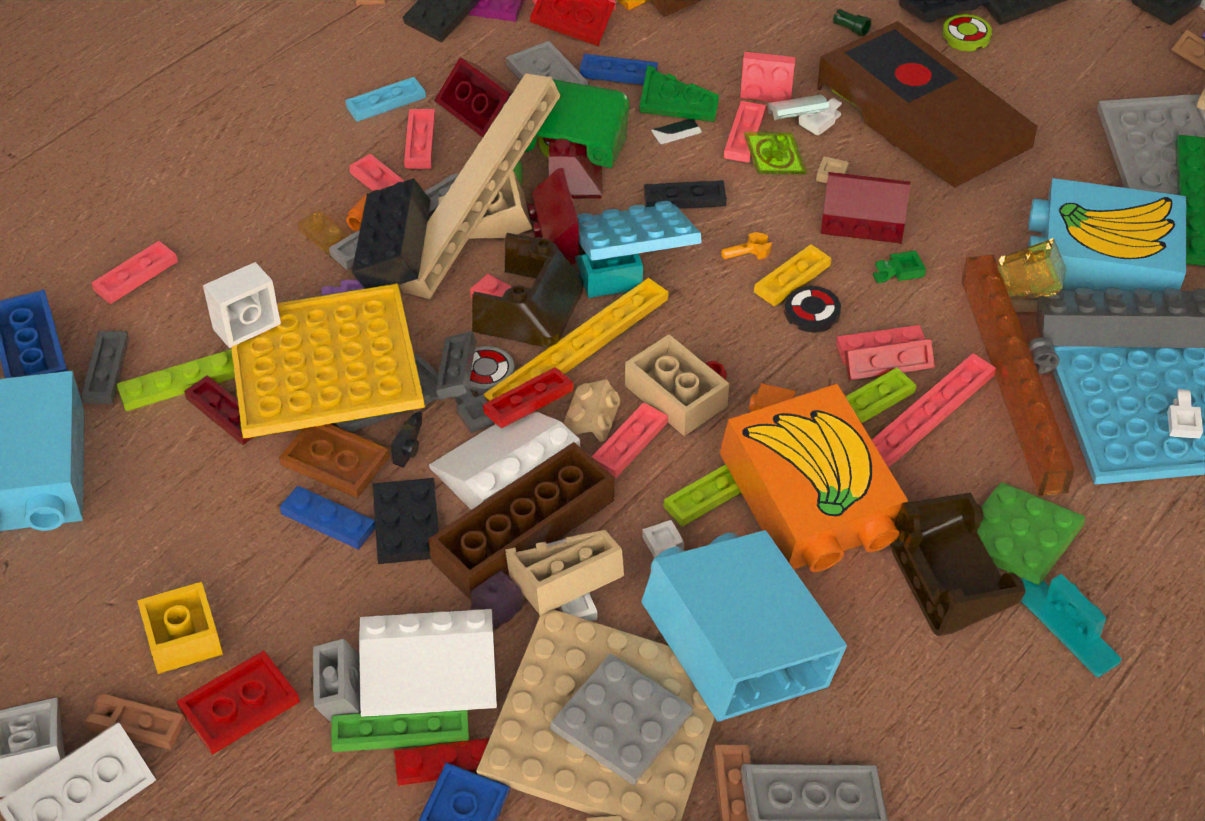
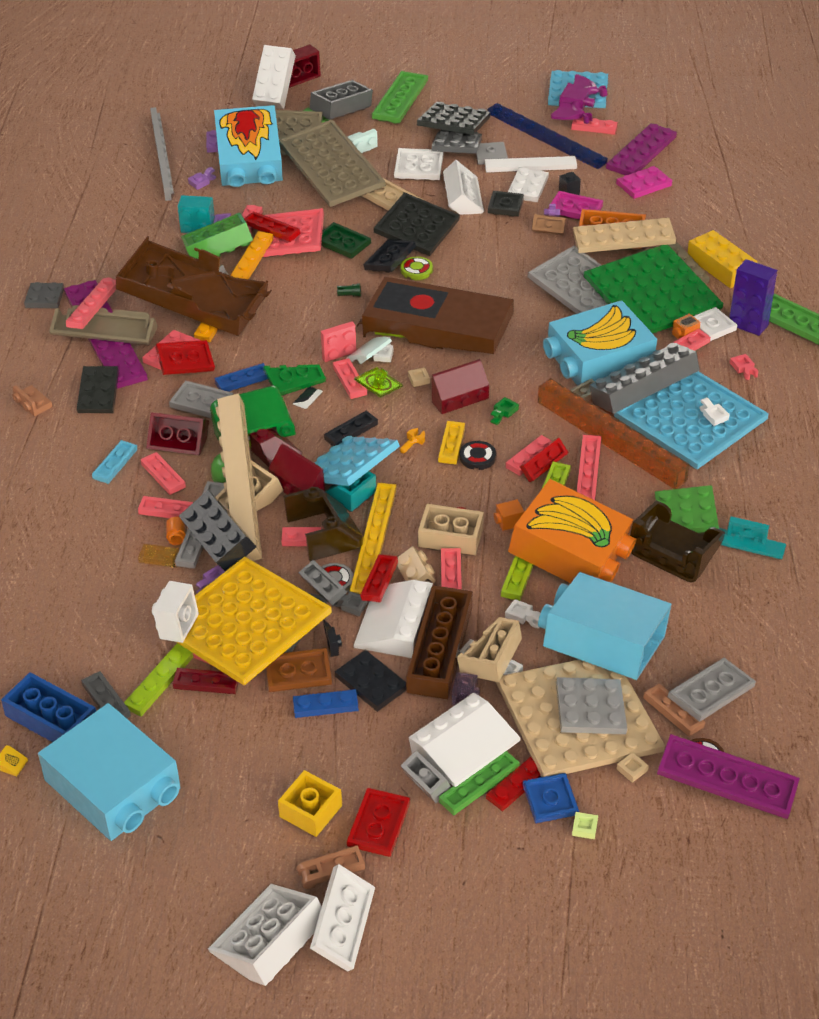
camera: 35 degrees left, 5 degrees down
(134, 272) = (64, 637): coral plate -> none
(1033, 270) = (582, 373): clear yellow brick -> none
(1043, 354) = (617, 413): dark grey wheel -> none

